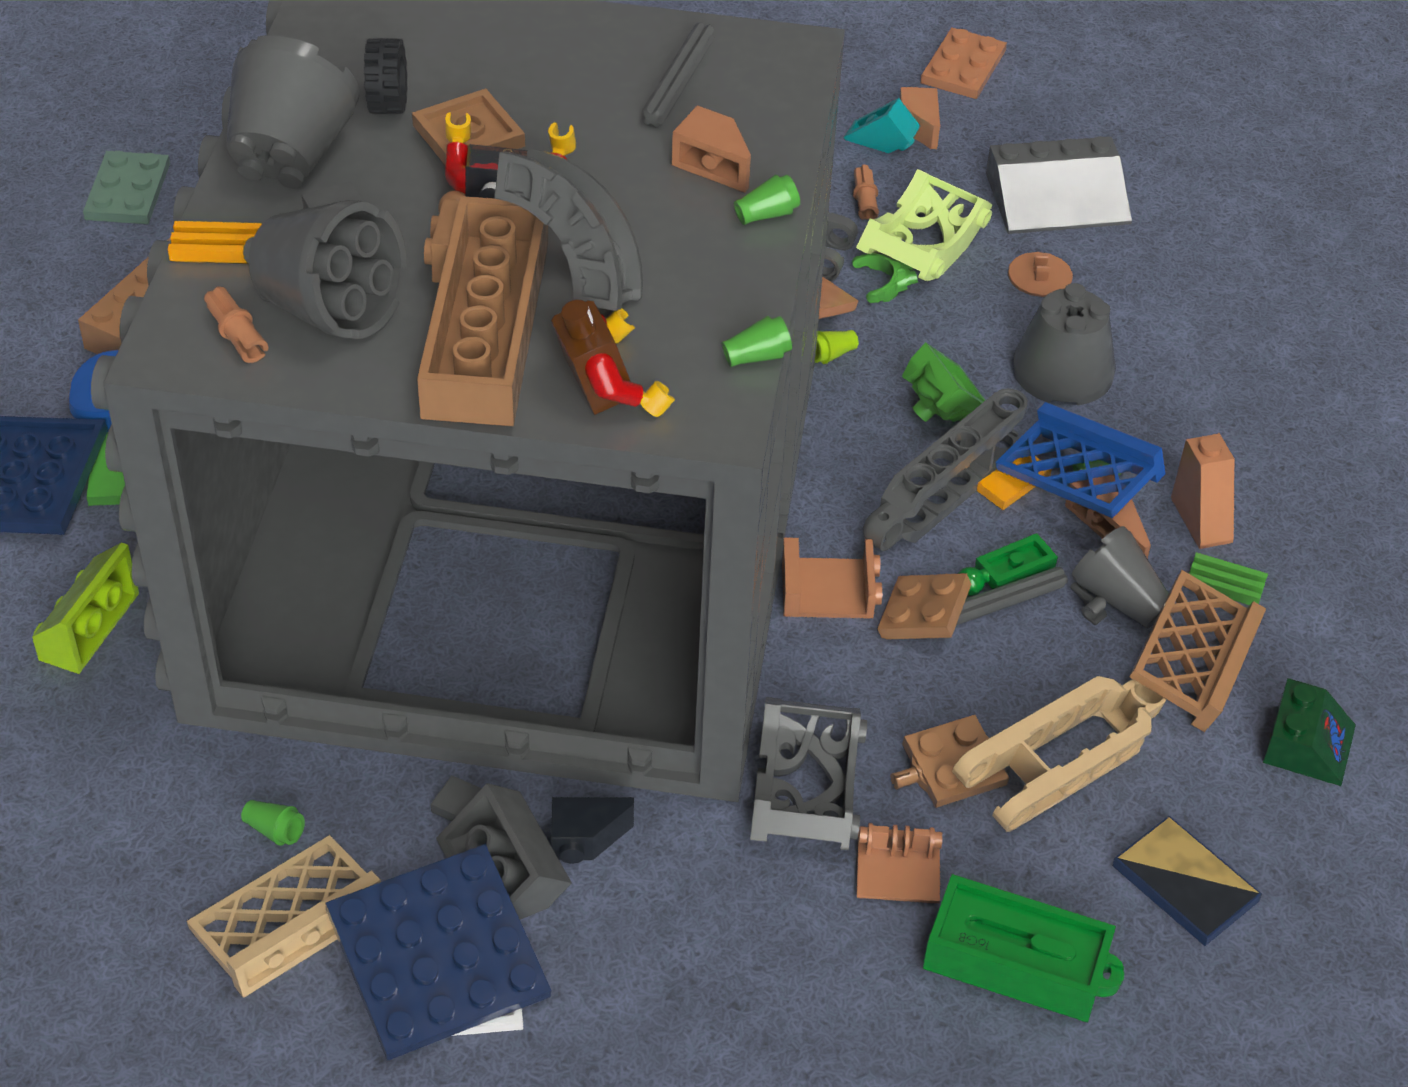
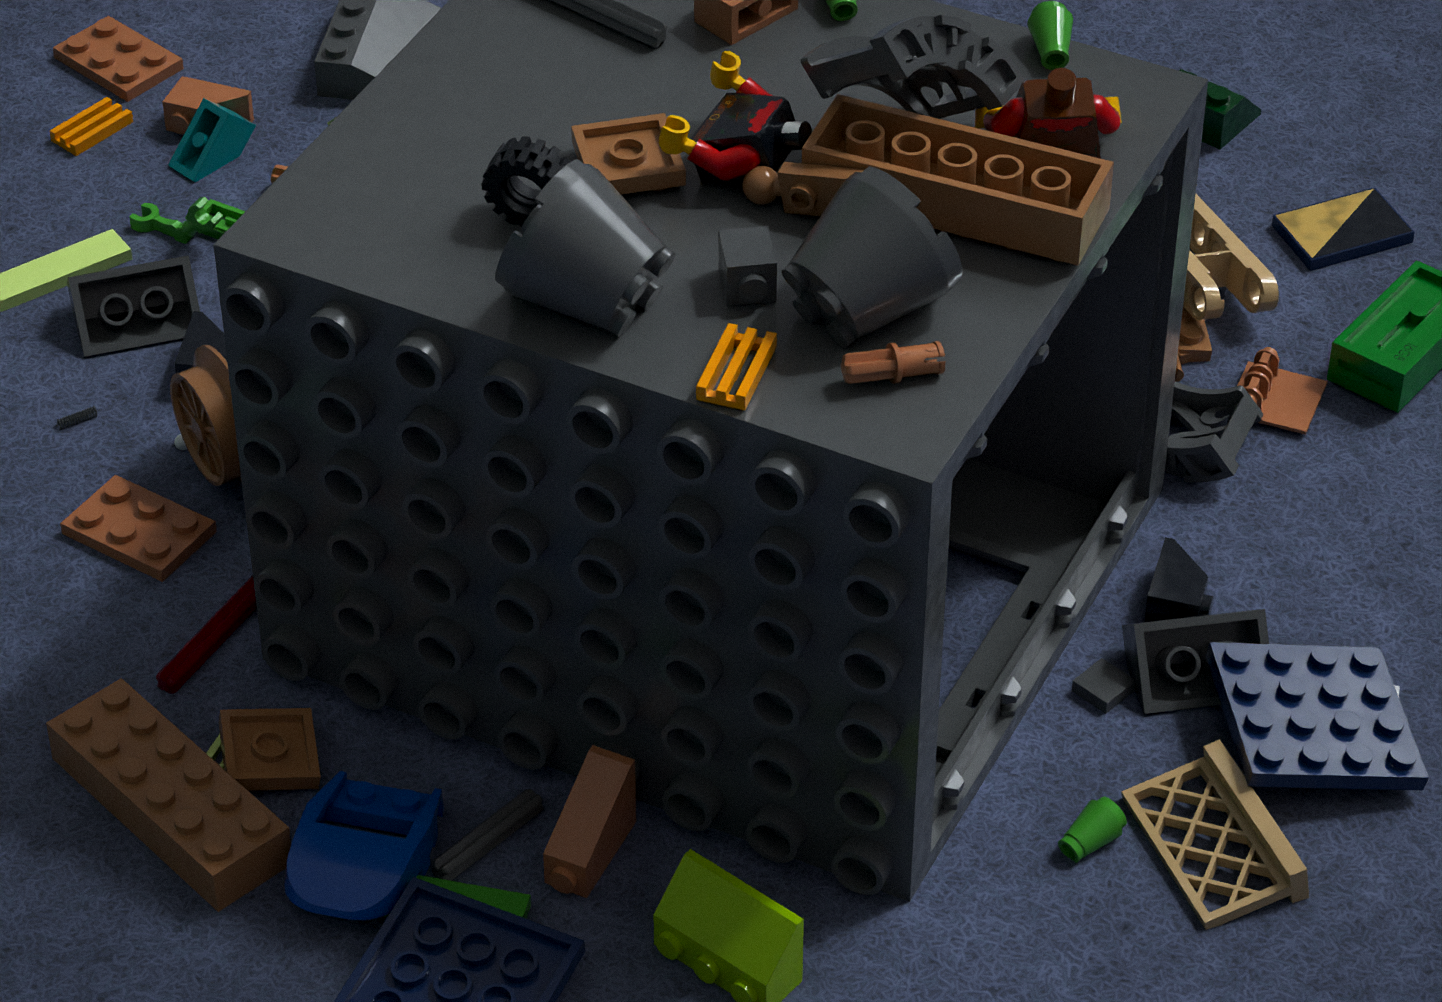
camera: 70 degrees left, 5 degrees down
(876, 71) = (91, 126): none -> light orange tile

